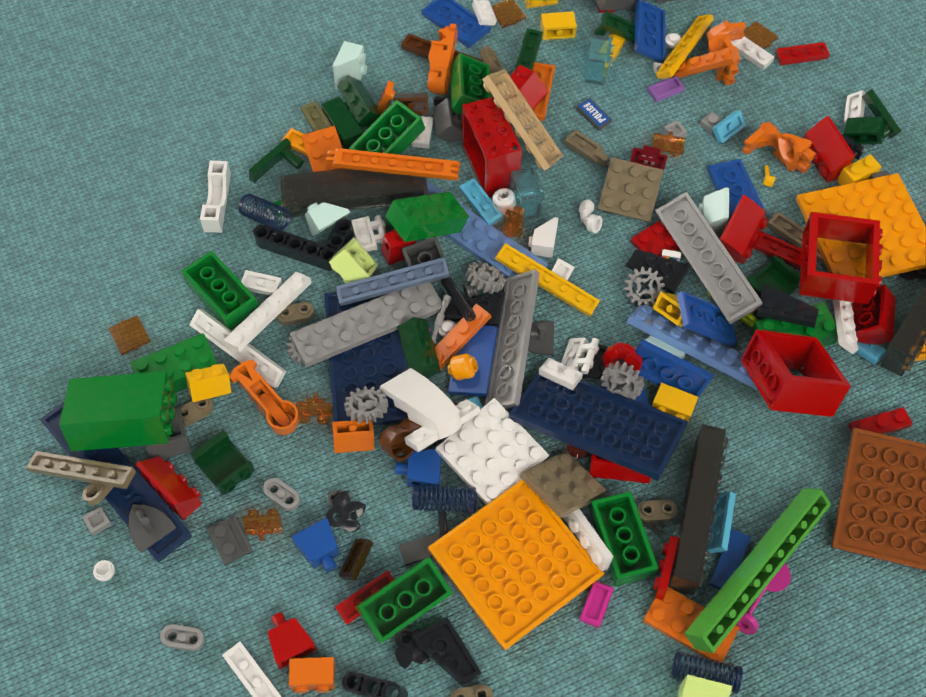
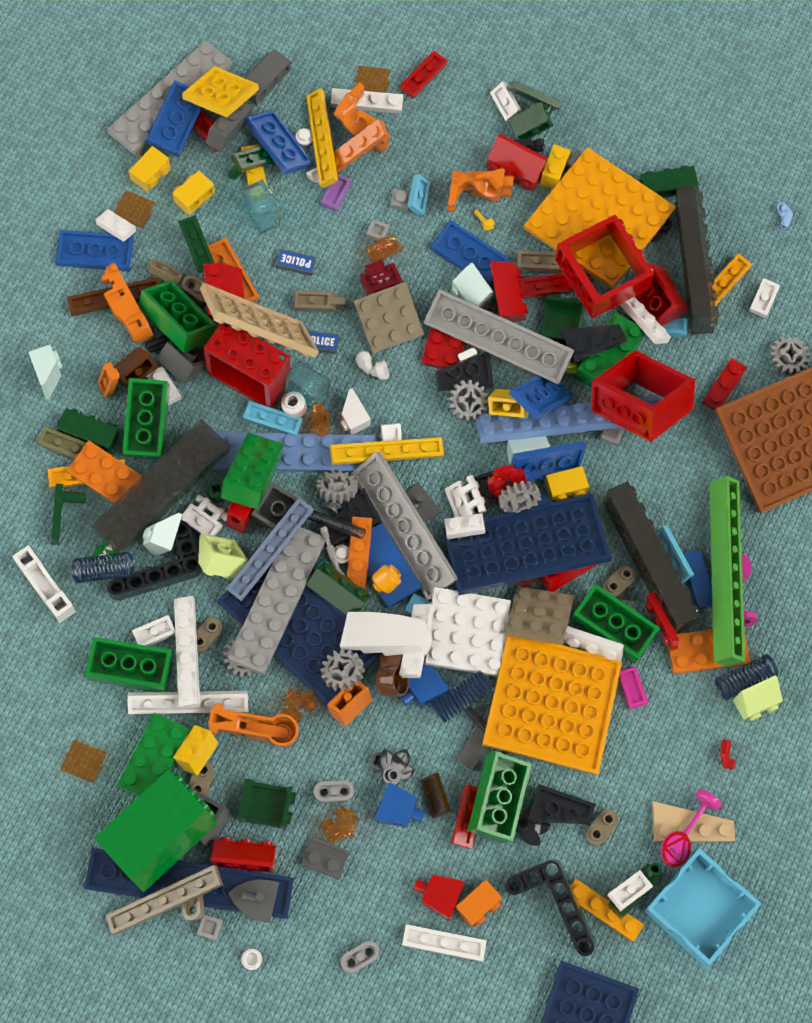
camera: 45 degrees left, 10 degrees up
(359, 101) = (86, 399): dark green brick -> none
(393, 164) = (184, 444): orange hinge -> none
(564, 176) = (325, 341): none -> tile
(746, 394) = (612, 436): none -> light grey plate

